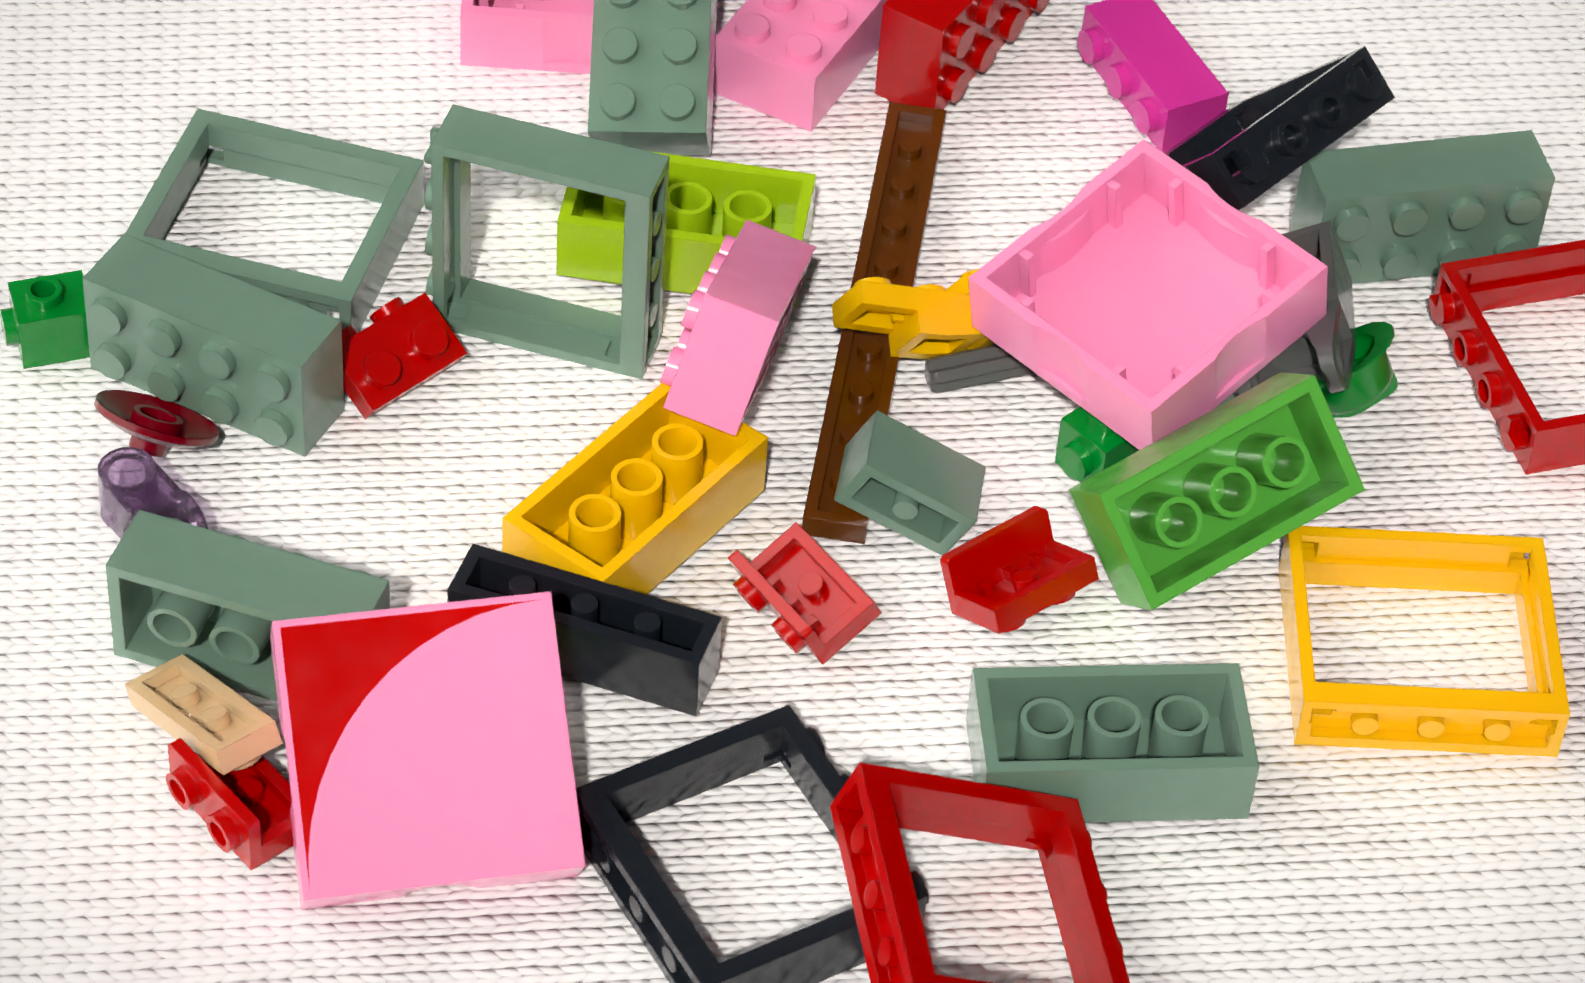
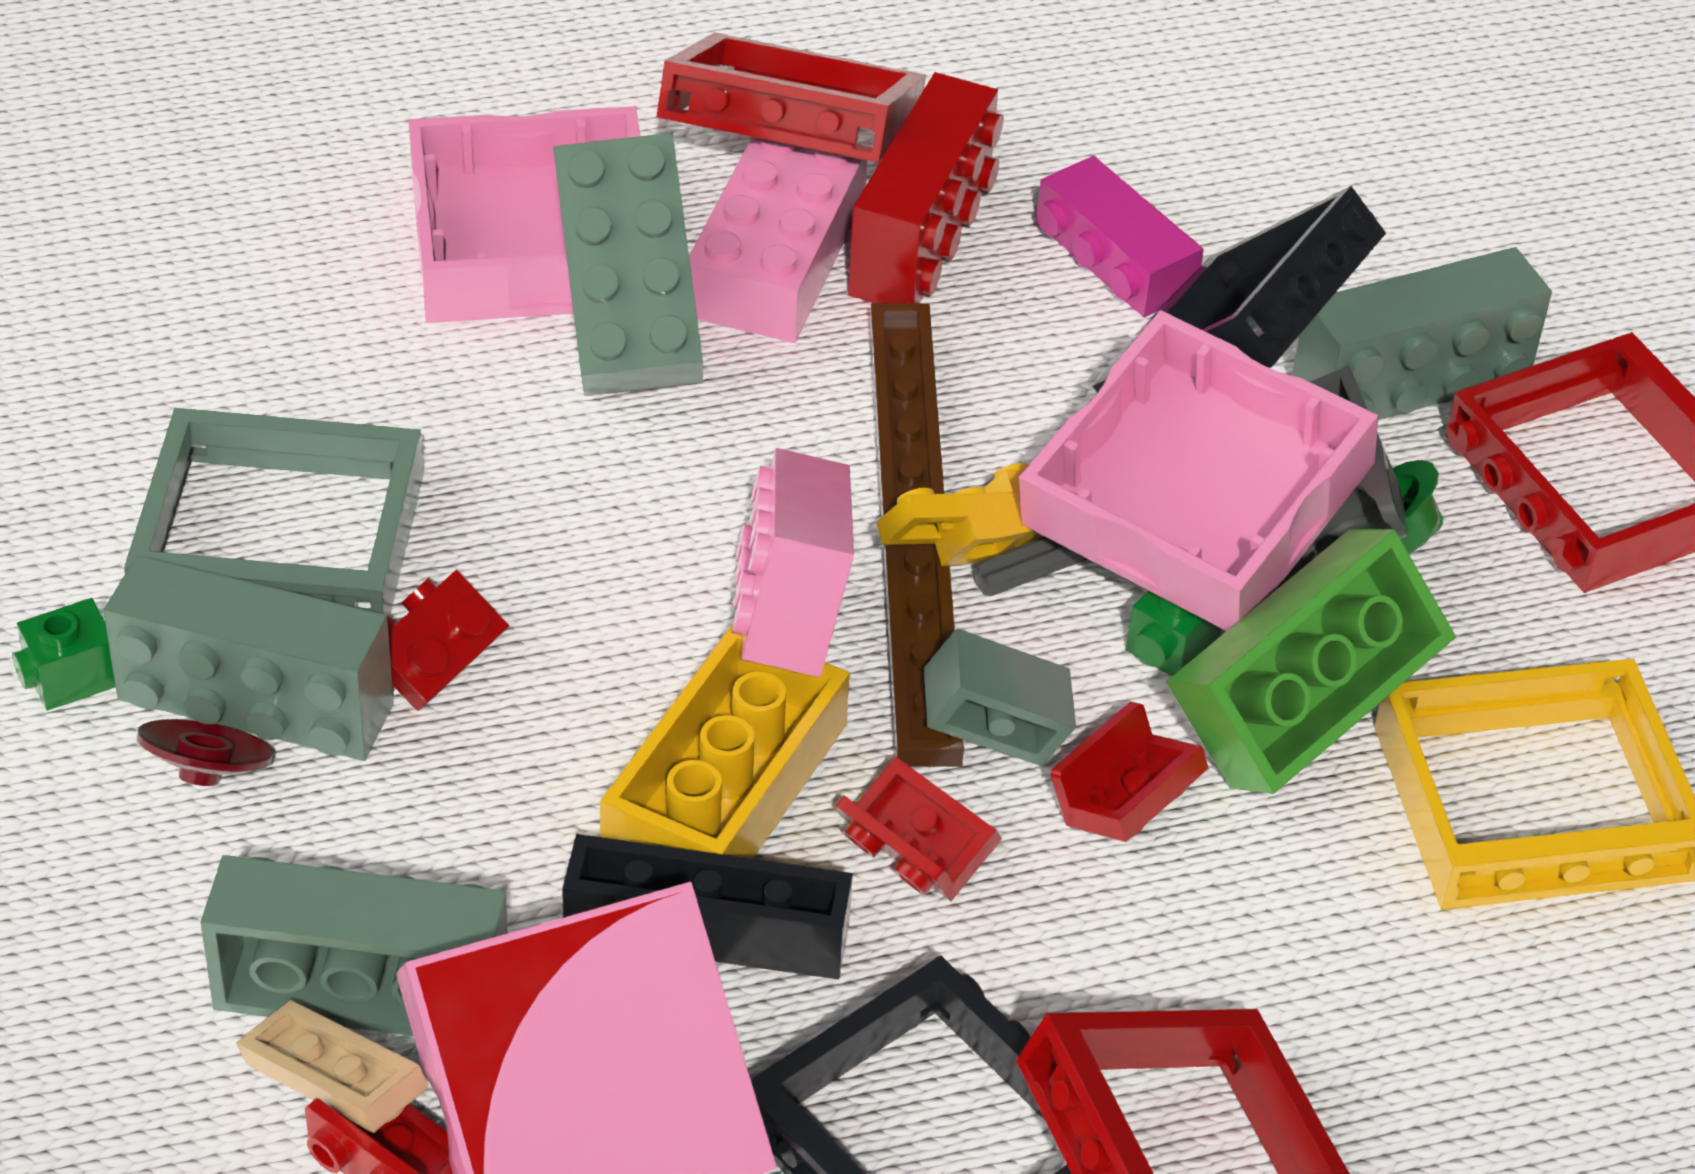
camera: 10 degrees left, 0 degrees up
(135, 482) = (203, 827): clear purple piece -> none
(529, 320) = (573, 580): sand green window -> none
(702, 207) = (686, 452): lime brick -> none
(1118, 738) = (1277, 936): sand green brick -> none

